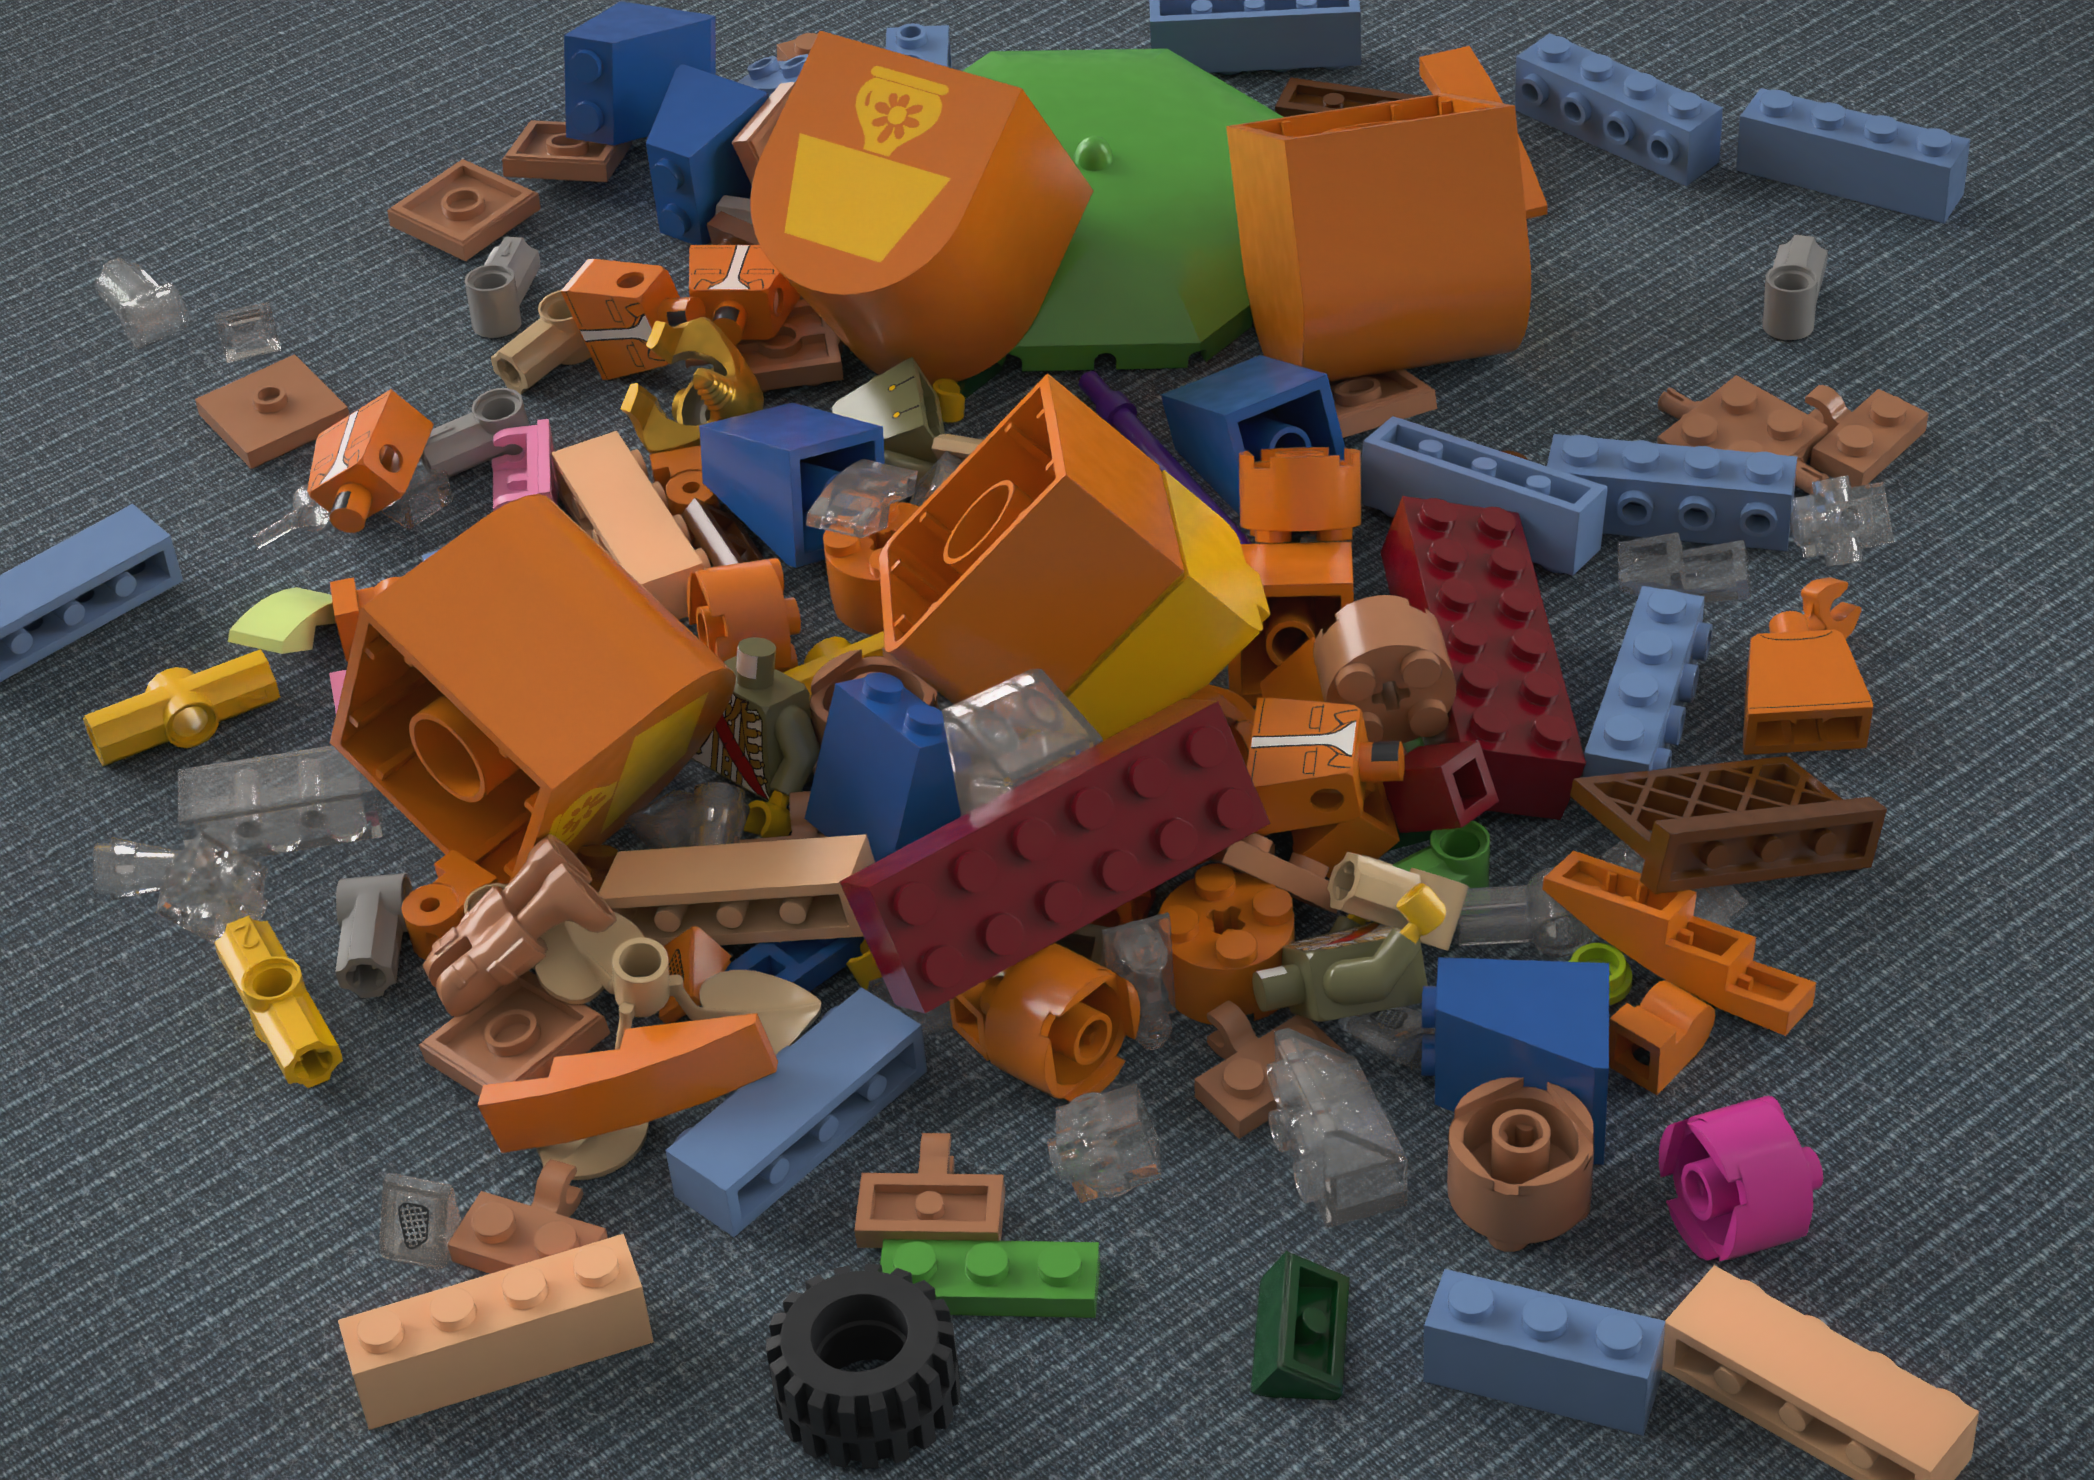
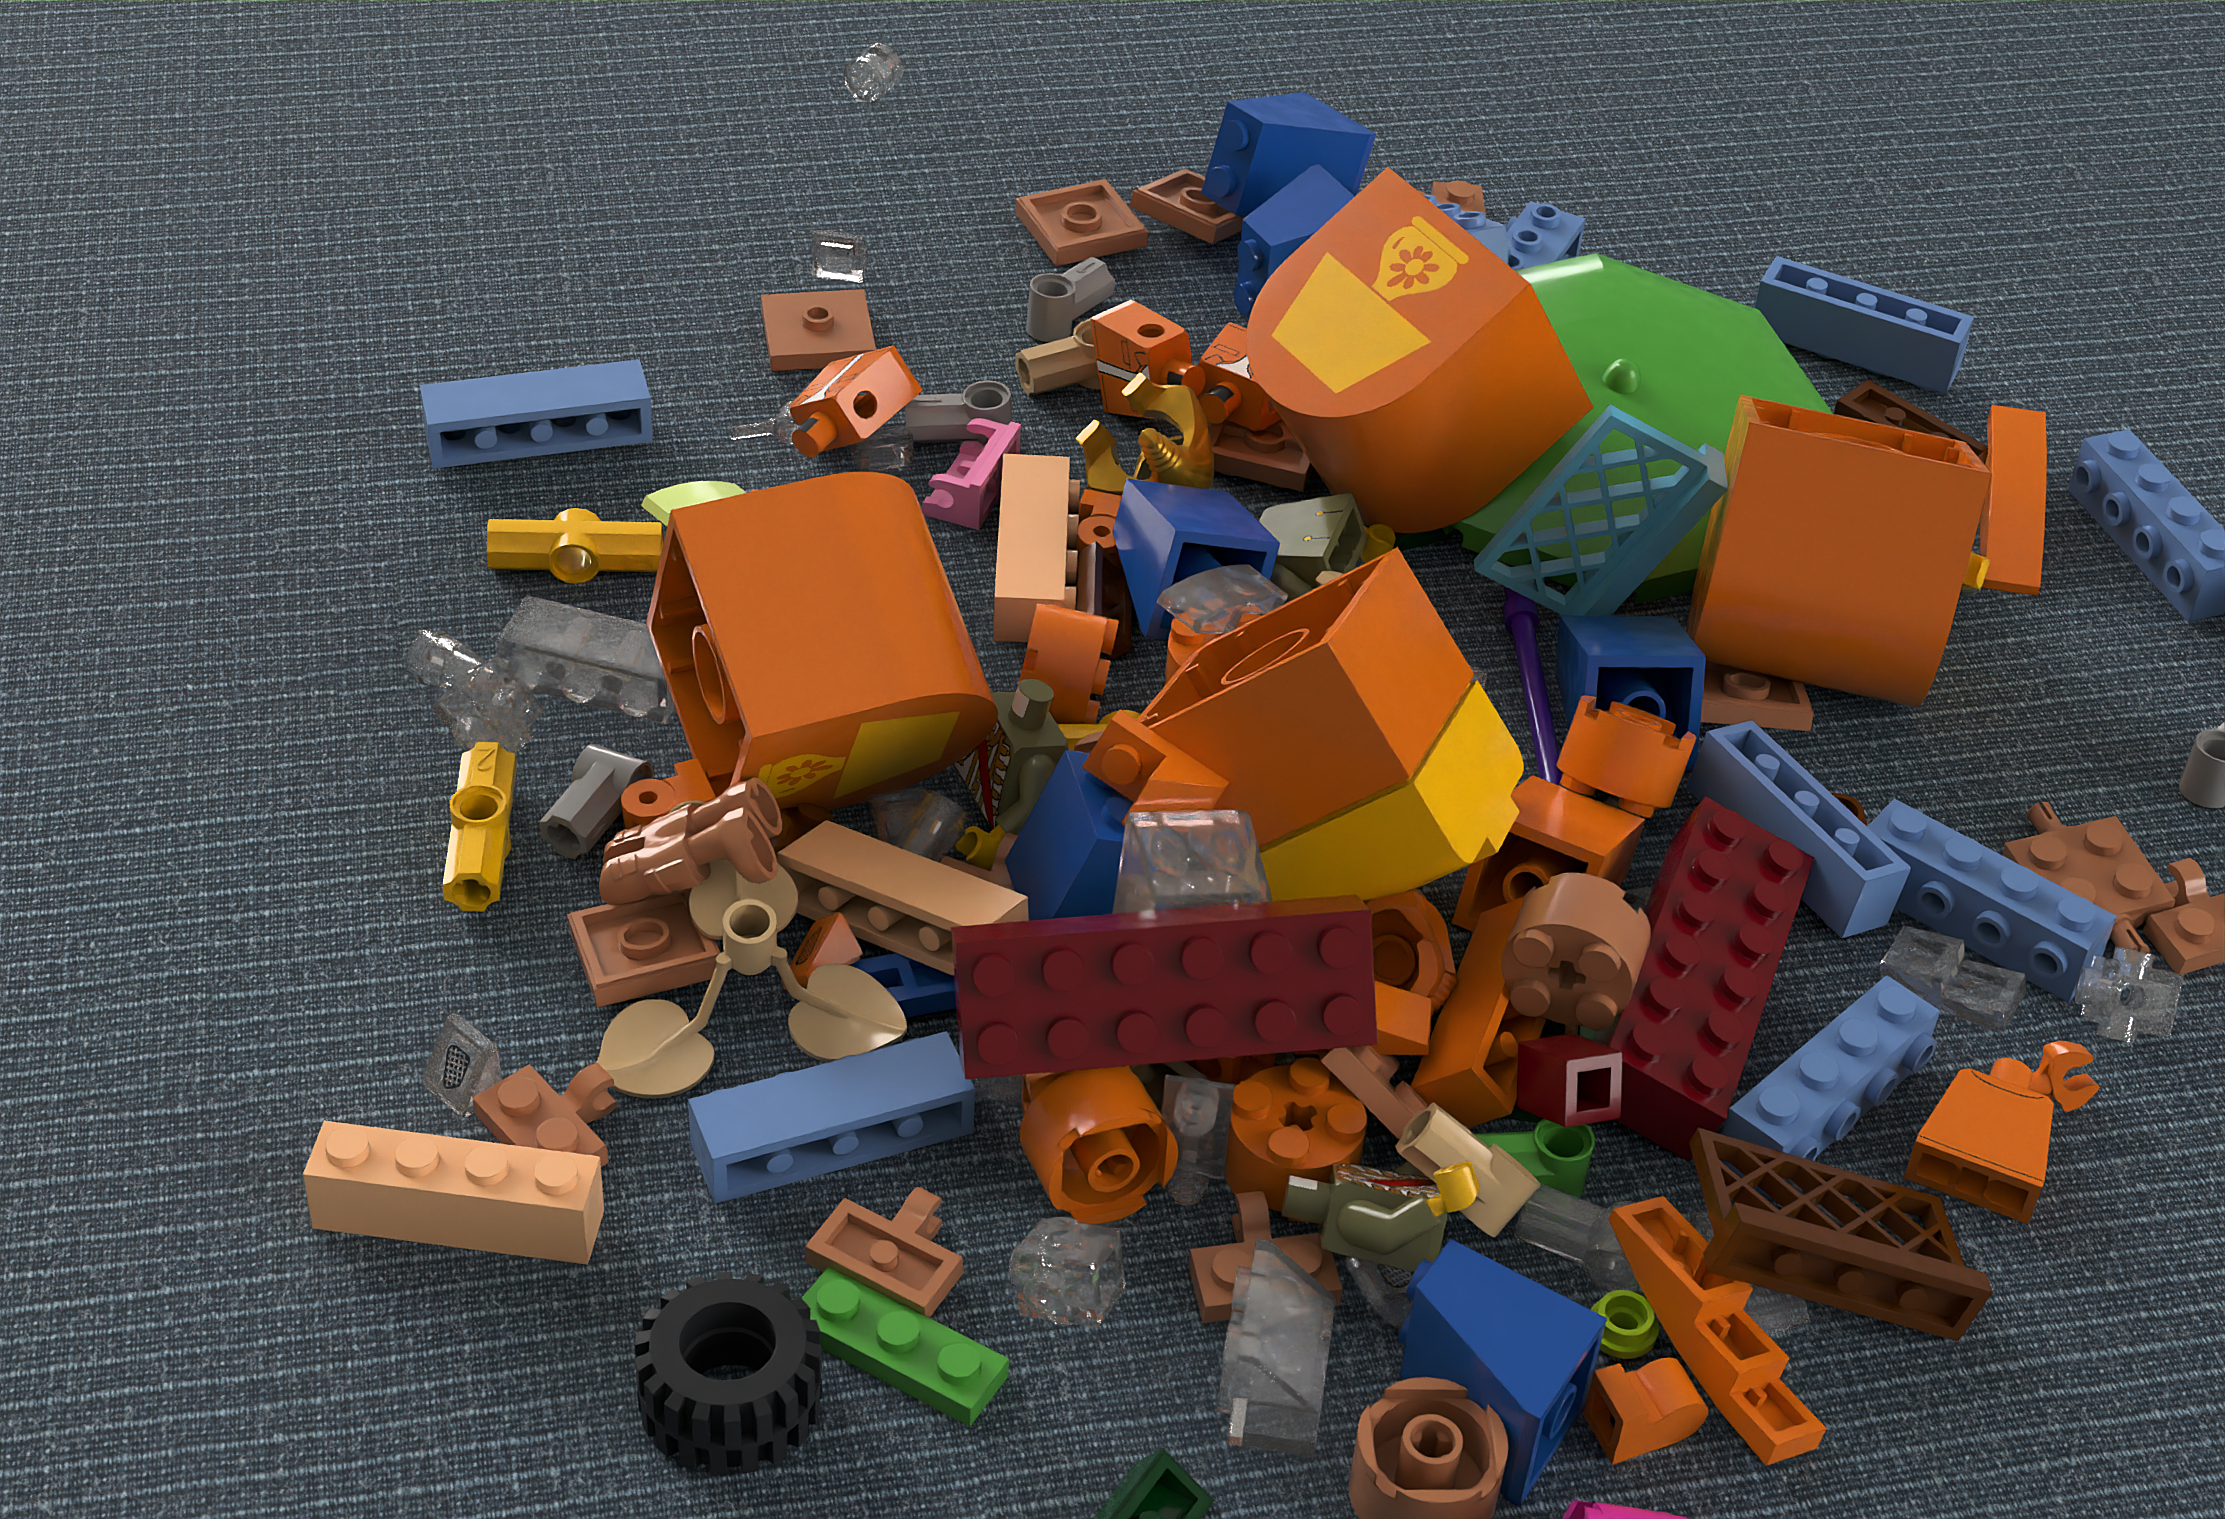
camera: 20 degrees right, 0 degrees up
(143, 306) = (771, 201): clear piece -> none
(144, 148) = (873, 72): none -> clear wheel
(646, 1079) = (704, 1029): orange slope -> none
(933, 667) = (1151, 769): none -> orange slope
(1201, 297) = (1644, 536): none -> medium azure fence
(1315, 762) = (1454, 1007): orange torso -> none

